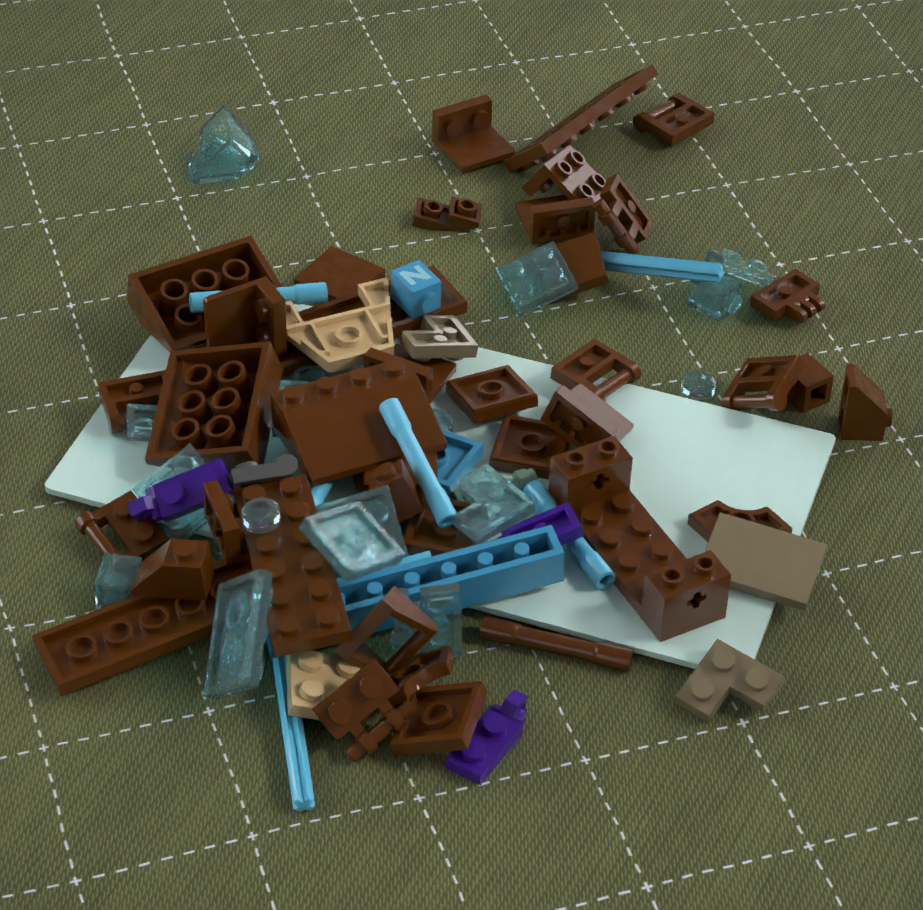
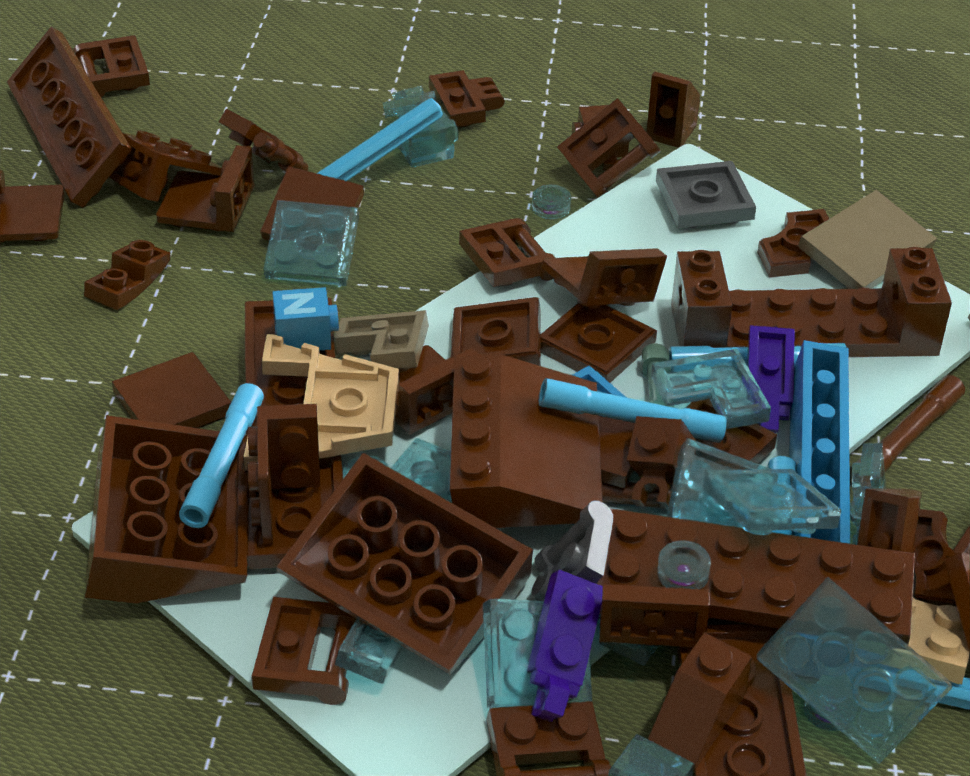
camera: 65 degrees left, 0 degrees up
(754, 455) = (705, 194): none -> dark grey plate

